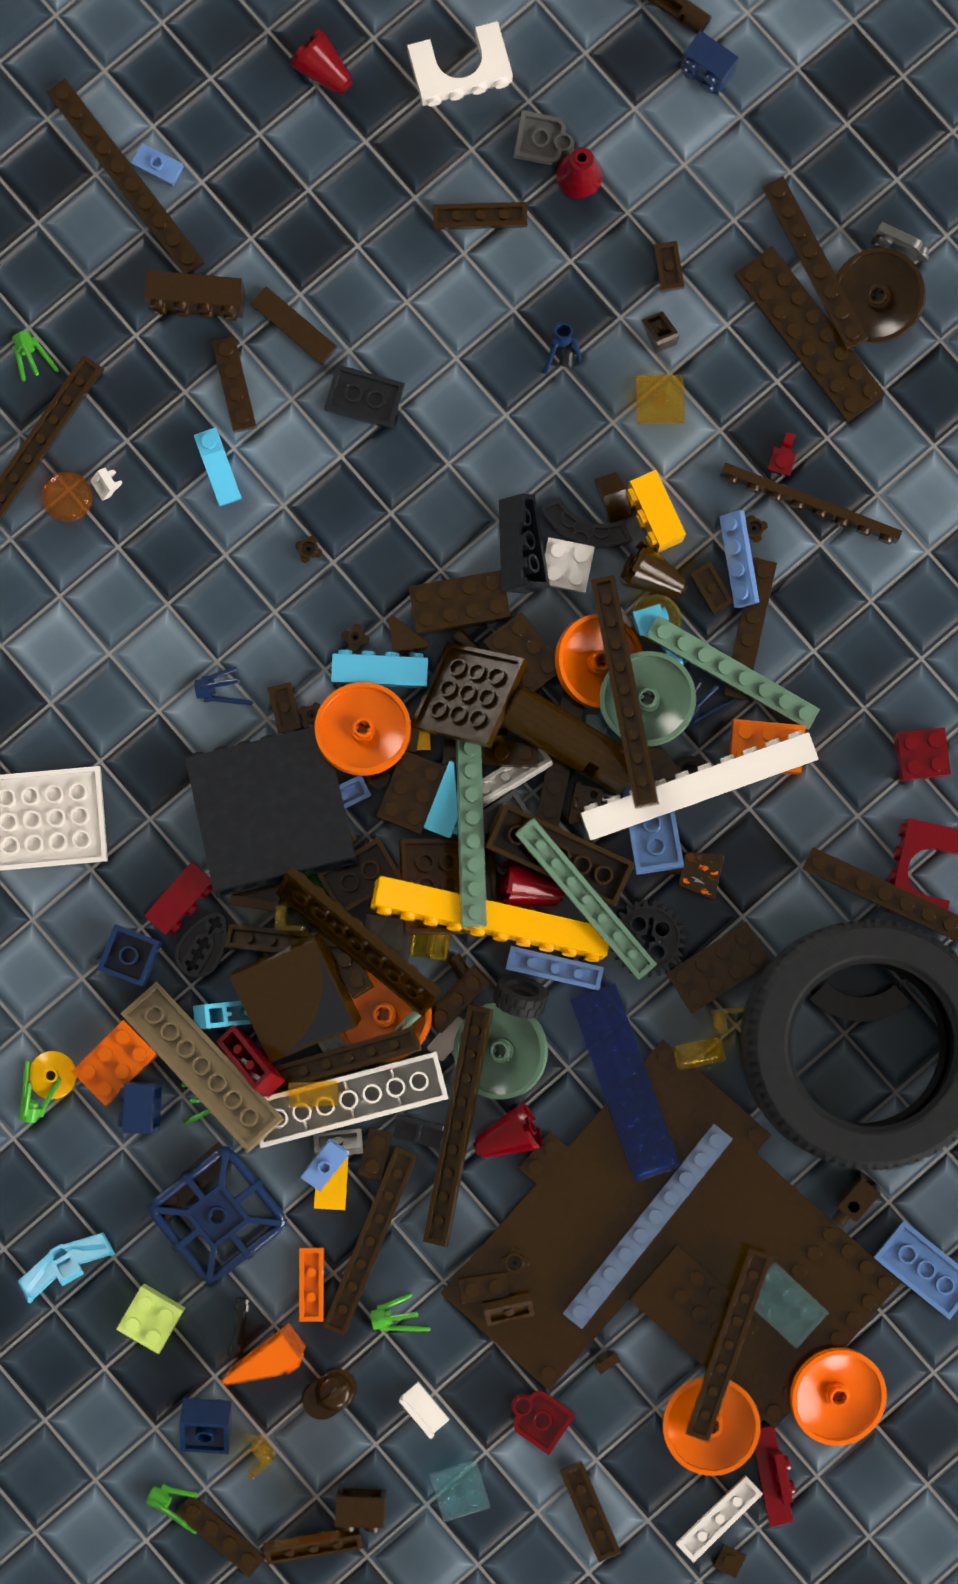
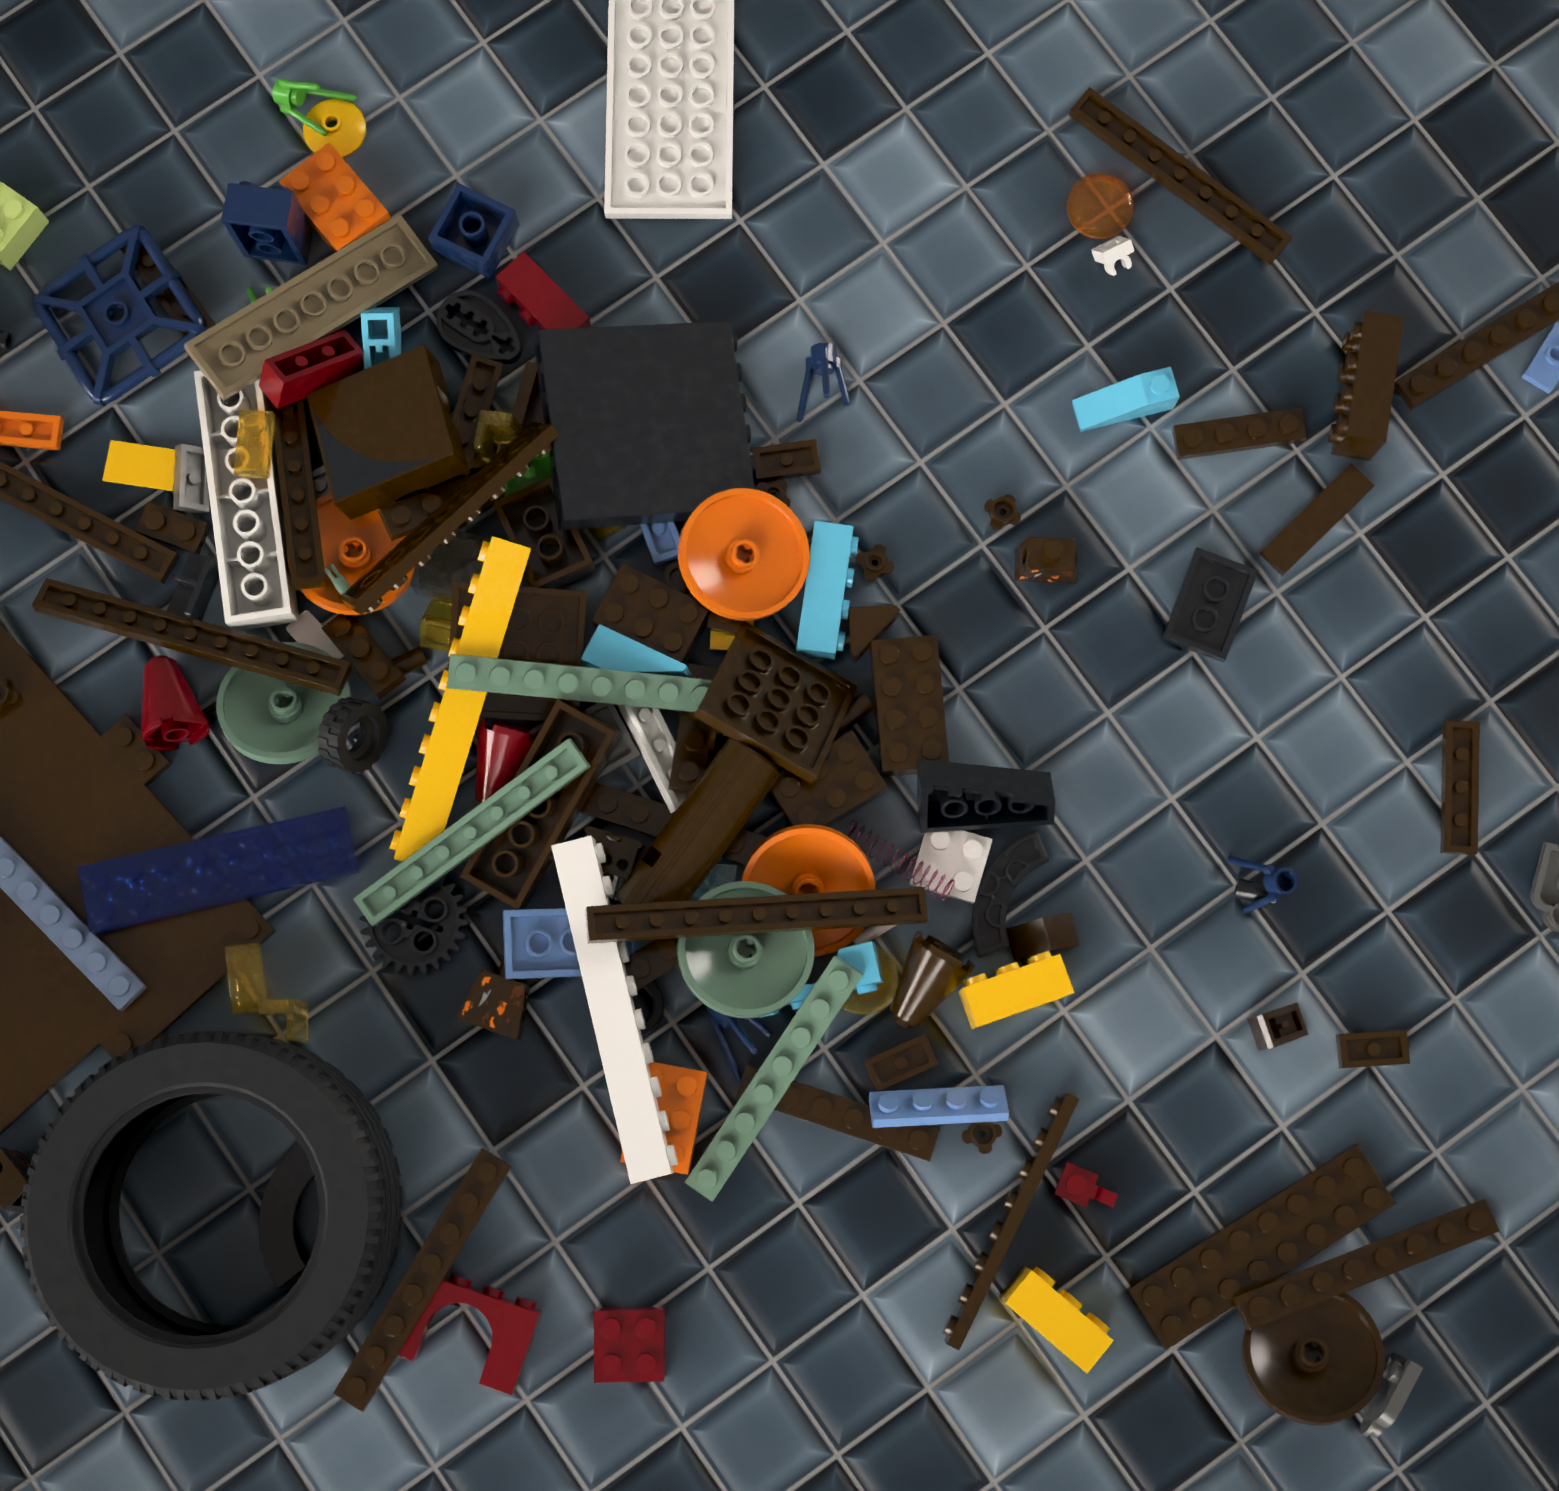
camera: 100 degrees right, 5 degrees down
(25, 345) = (1309, 165): bright green plant -> none
(64, 1263) = (85, 121): medium azure plate -> none
(324, 1164) = (162, 455): medium blue plate -> none
(344, 515) = (1046, 560): none -> dark brown torso
(554, 968) = (389, 790): medium blue plate -> none
(579, 174) = (1515, 934): dark red cone -> none
(588, 563) = (901, 863): none -> clear pink piece
(660, 399) = (1179, 1017): clear yellow plate -> none
(718, 967) = (363, 1018): dark brown plate -> none
(873, 466) = (1057, 1317): none -> yellow brick

